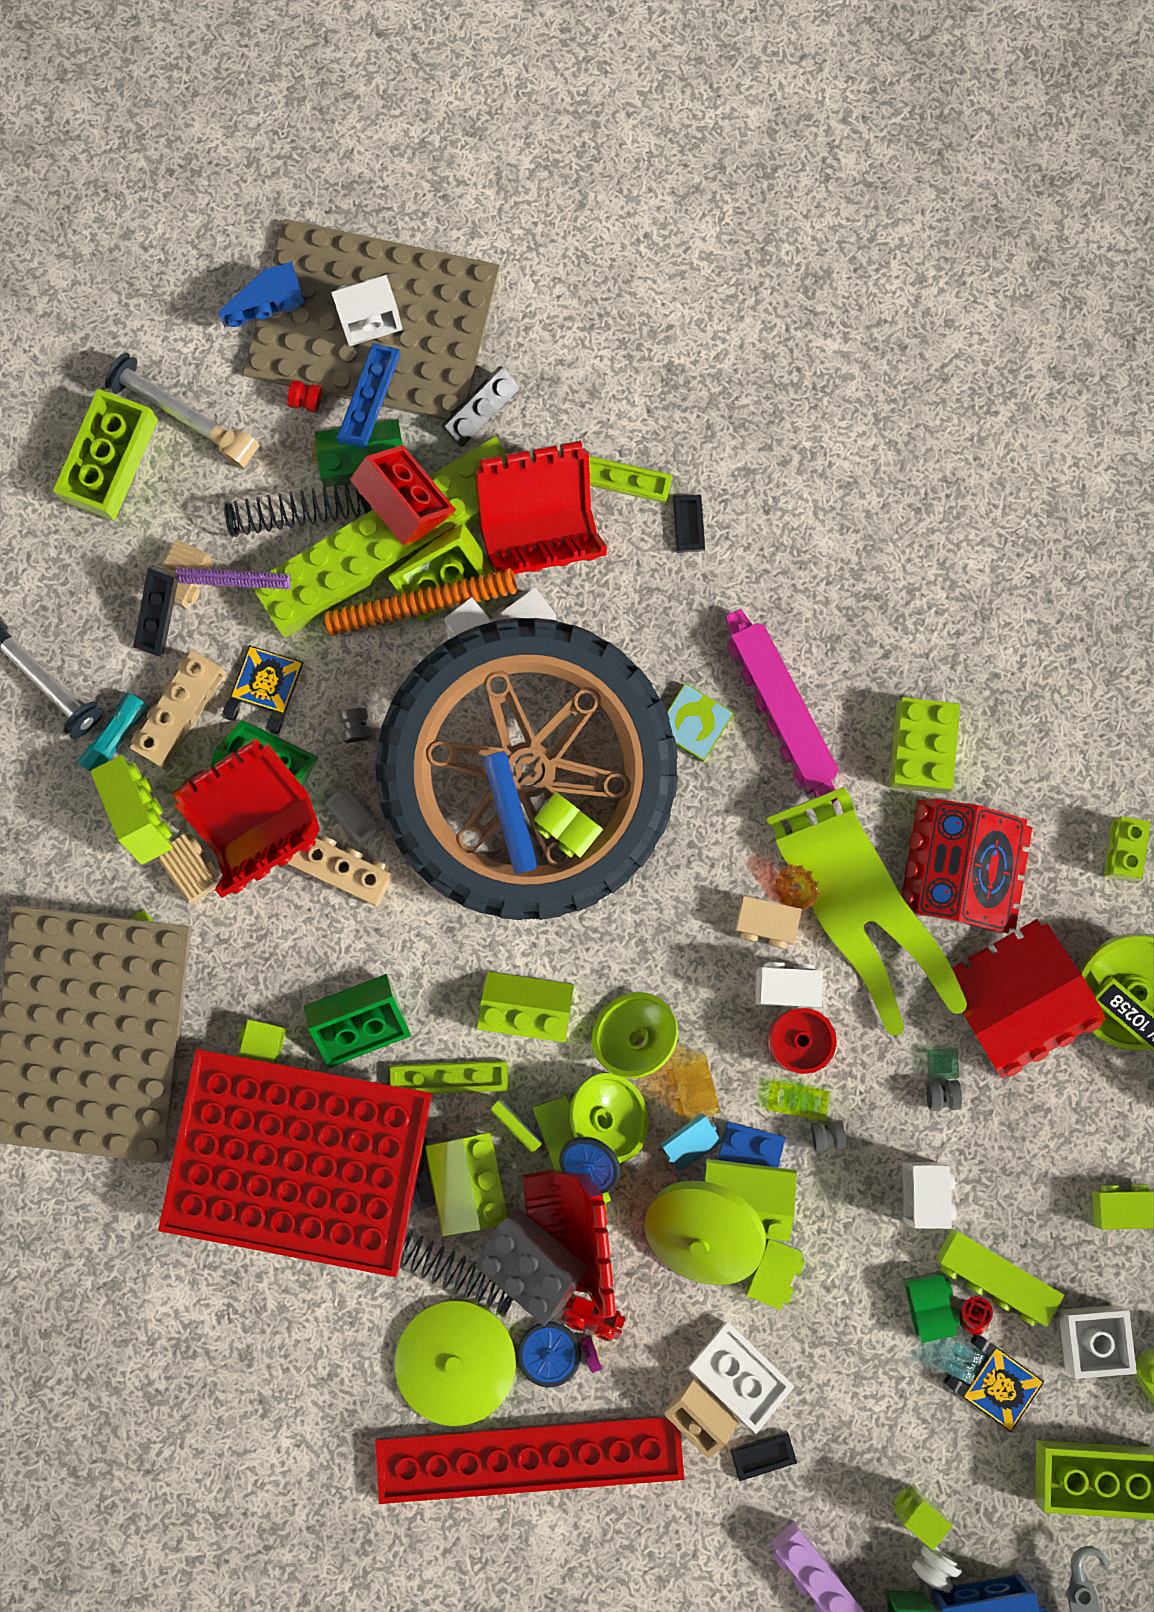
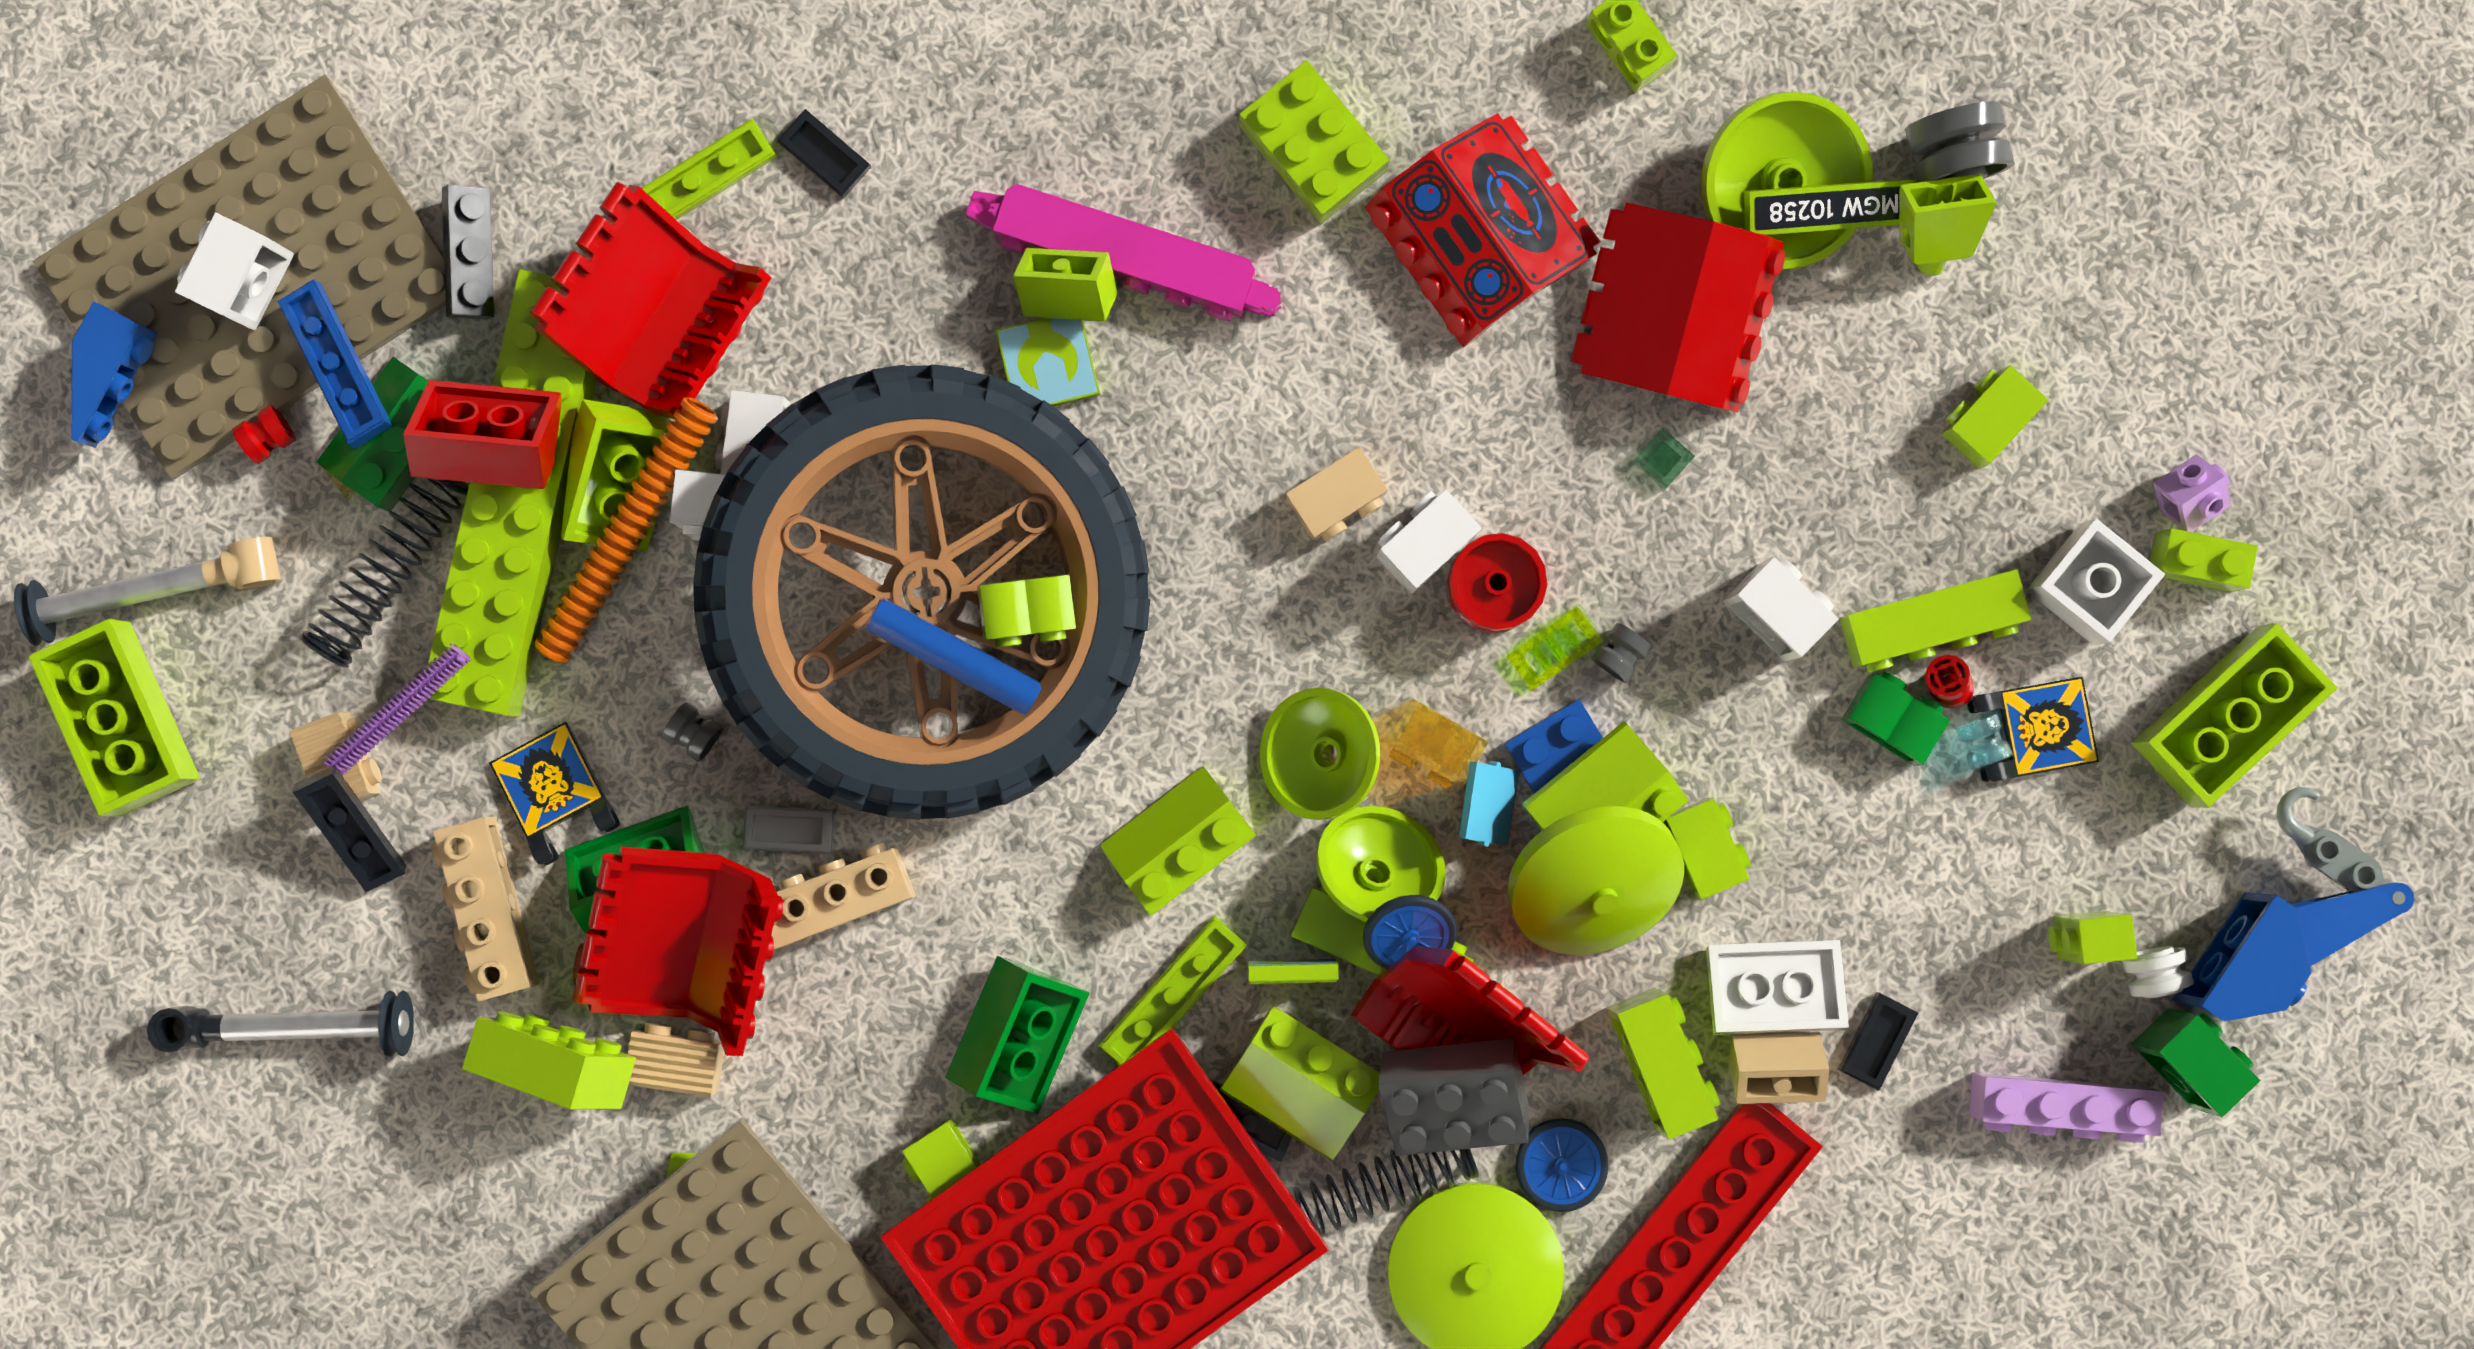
camera: 45 degrees left, 5 degrees up
(125, 716) = (437, 971): teal axle -> none
(581, 1317) = (1557, 1093): red hinge -> none
(593, 1359) = (1608, 1122): magenta tile -> none
(648, 1356) = (1664, 1062): none -> lime brick
(739, 694) = (1065, 284): none -> lime brick
(794, 897) = (1339, 441): clear orange gear -> none
(857, 891) = (1389, 369): lime flag -> none
(944, 1095) = (1697, 490): dark grey wheel -> none

